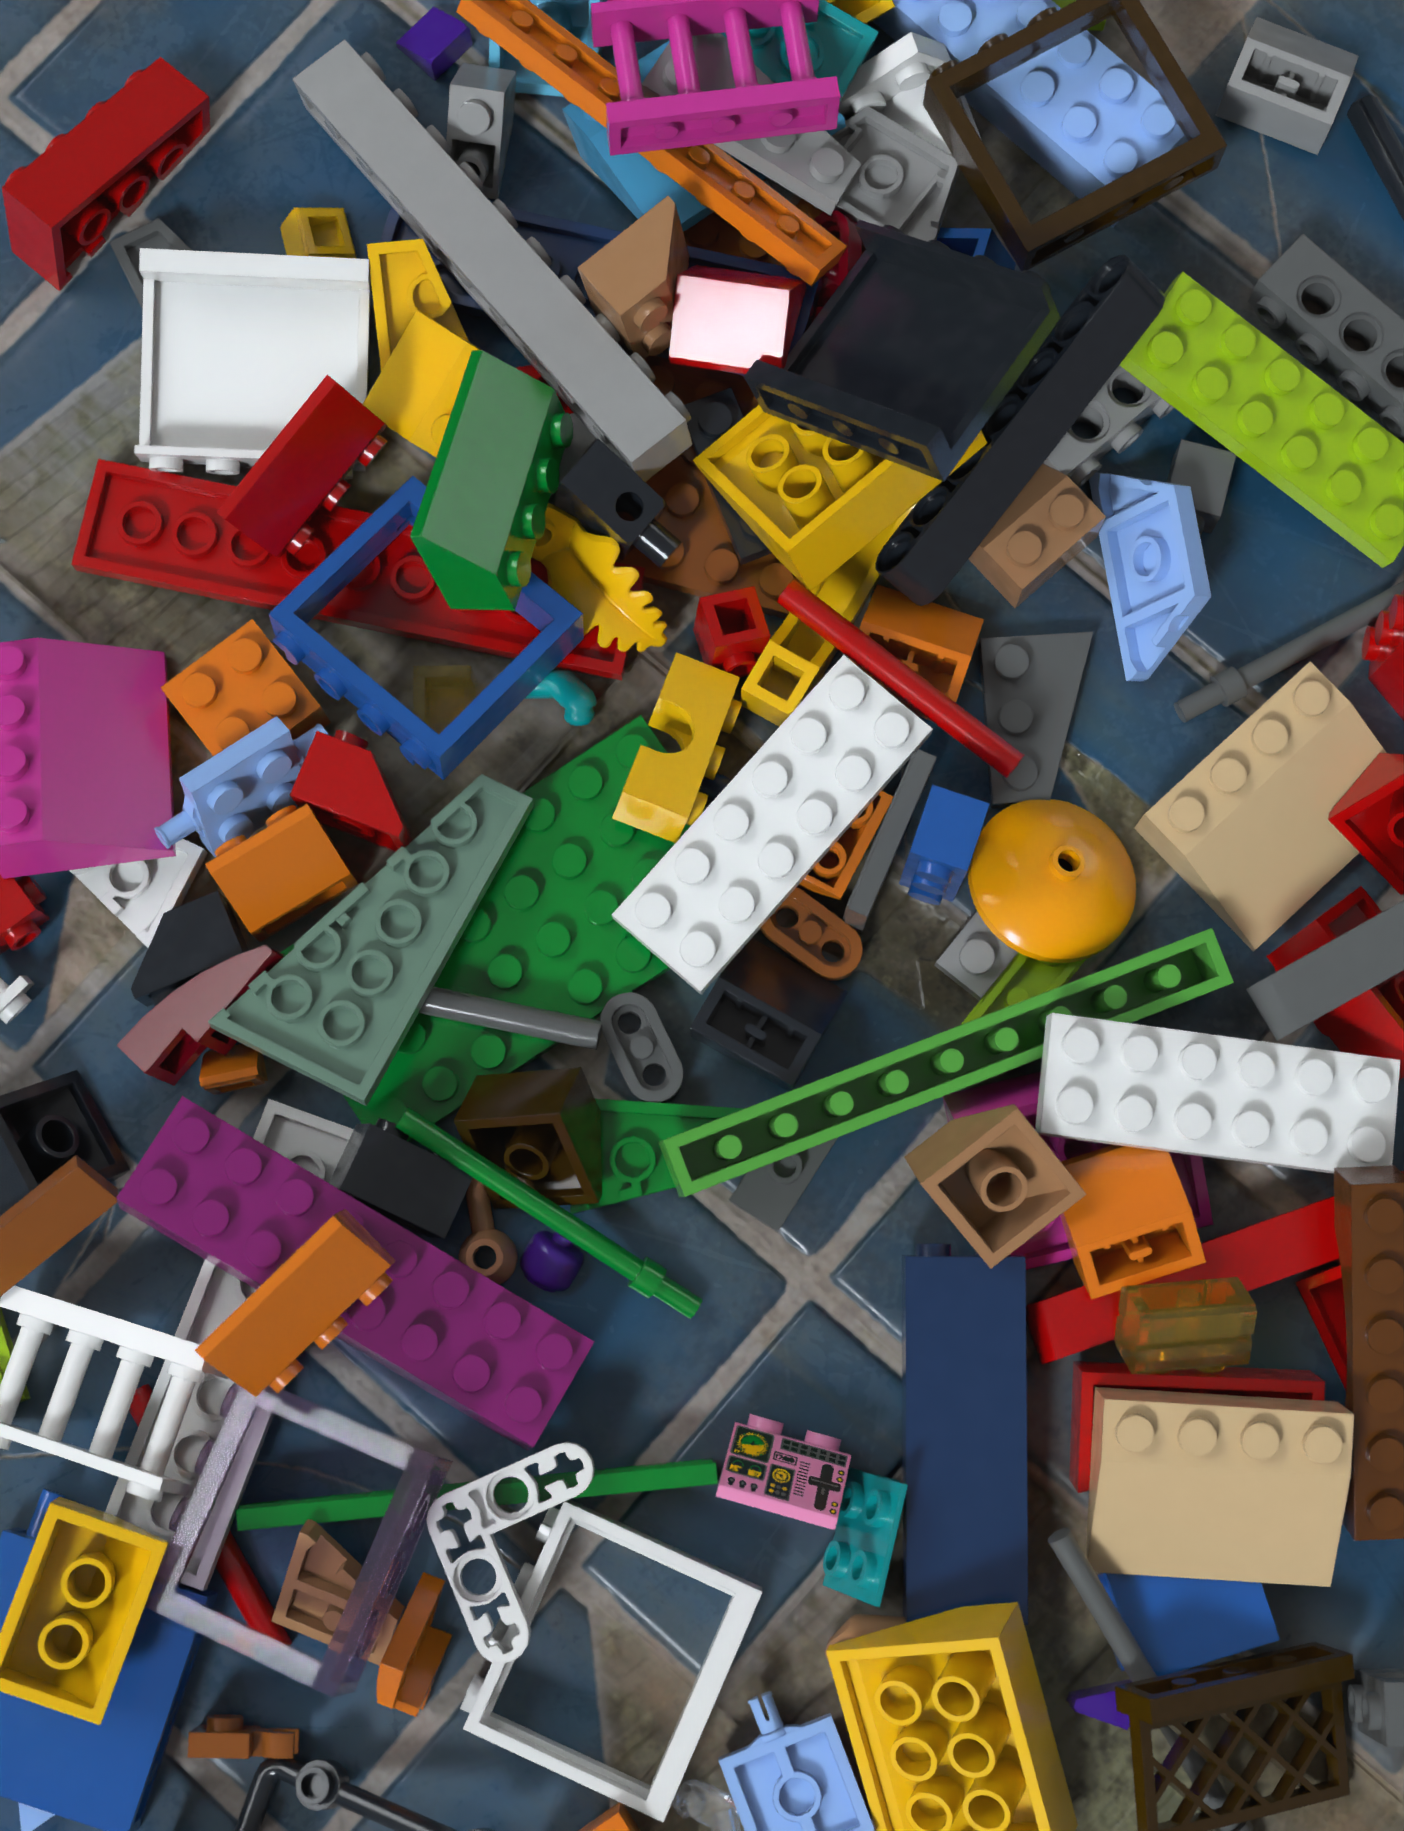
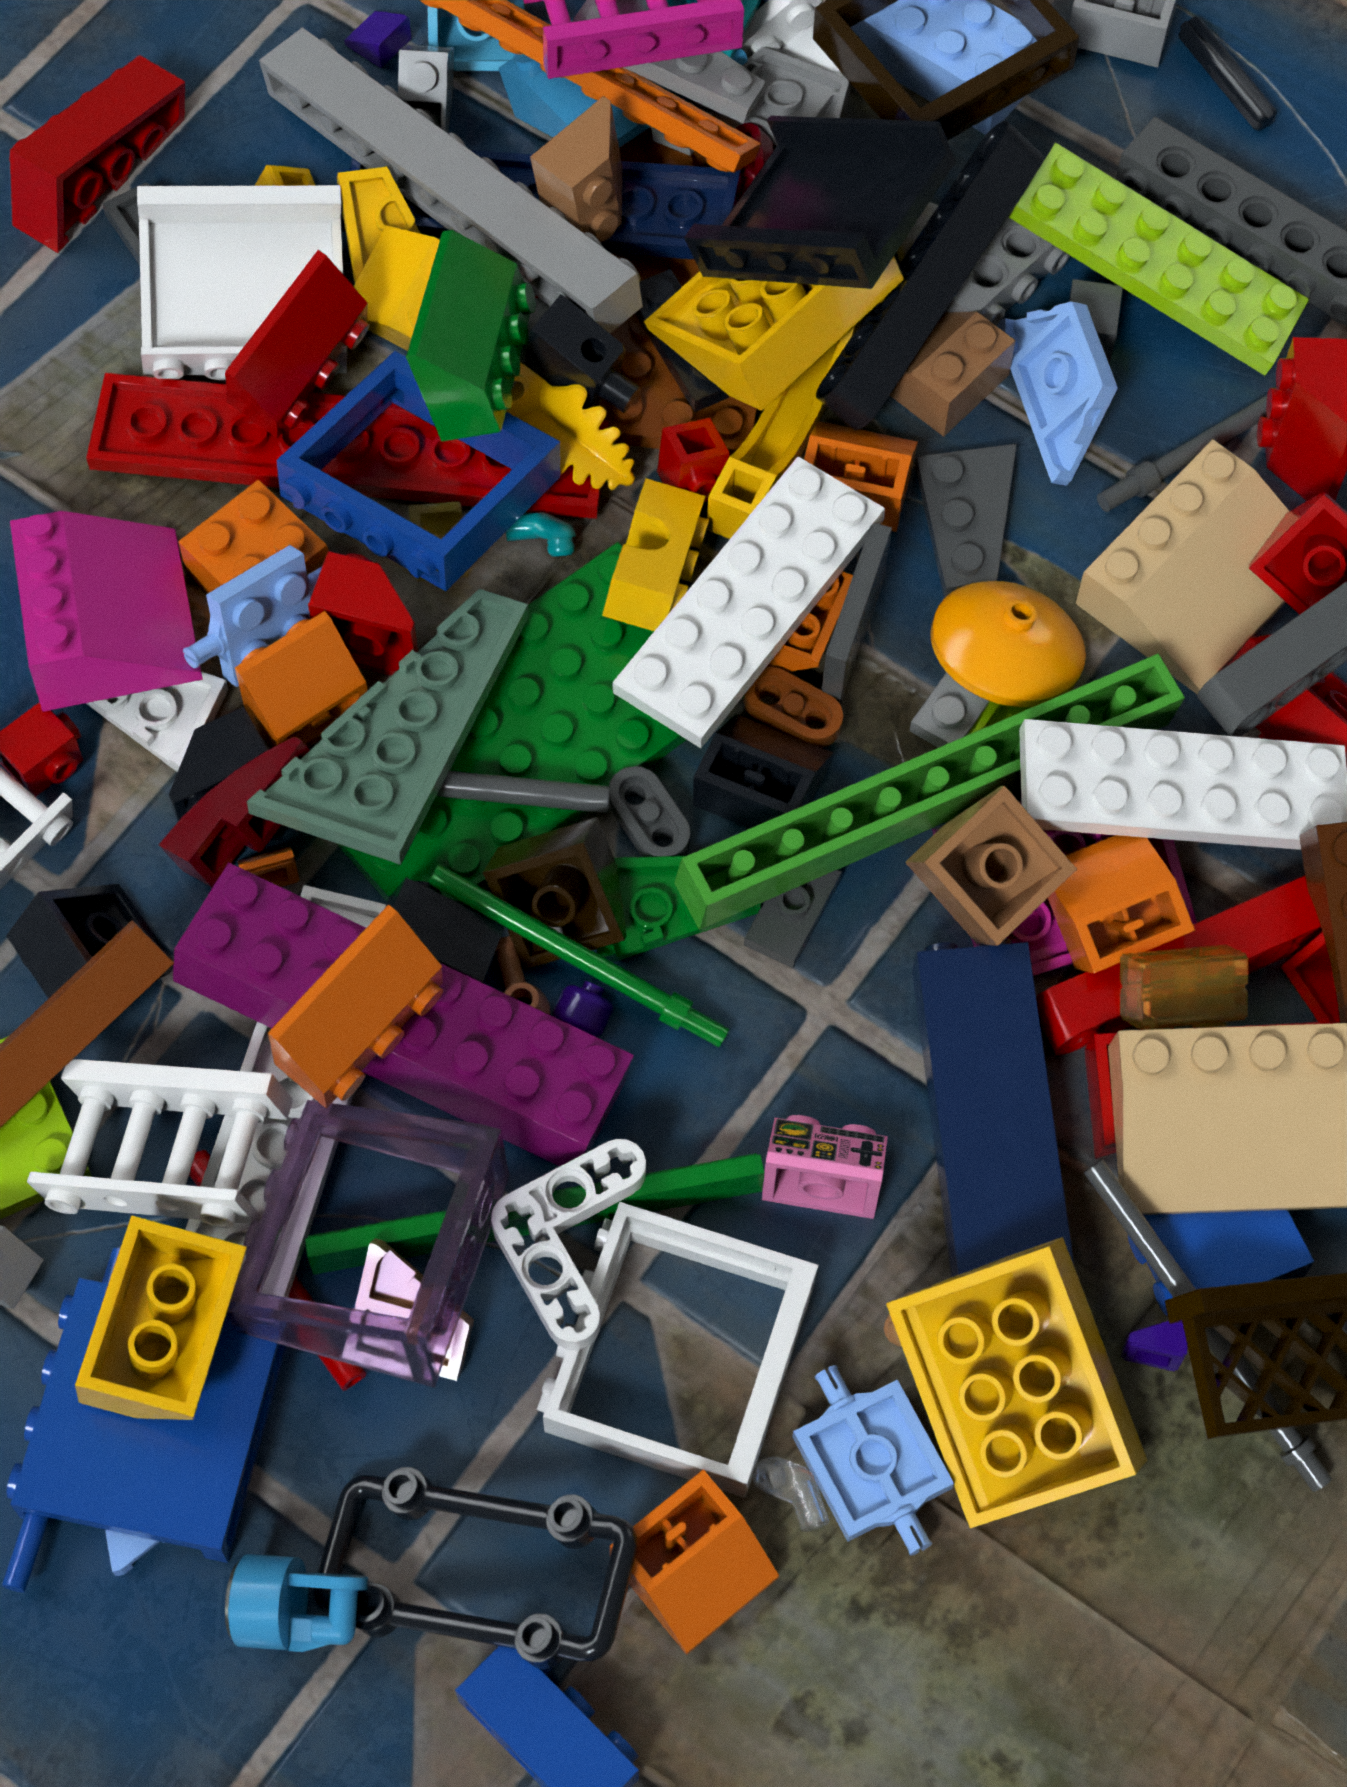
camera: 10 degrees left, 15 degrees down
(230, 1739) = (313, 1459): dark orange plate -> none
(414, 1651) = (484, 1364): orange slope -> none
(733, 318) = (665, 199): slope -> none
(864, 1536) = (909, 1212): teal hinge -> none
(900, 678) = (852, 474): red piece -> none
(943, 845) = (905, 605): blue brick -> none

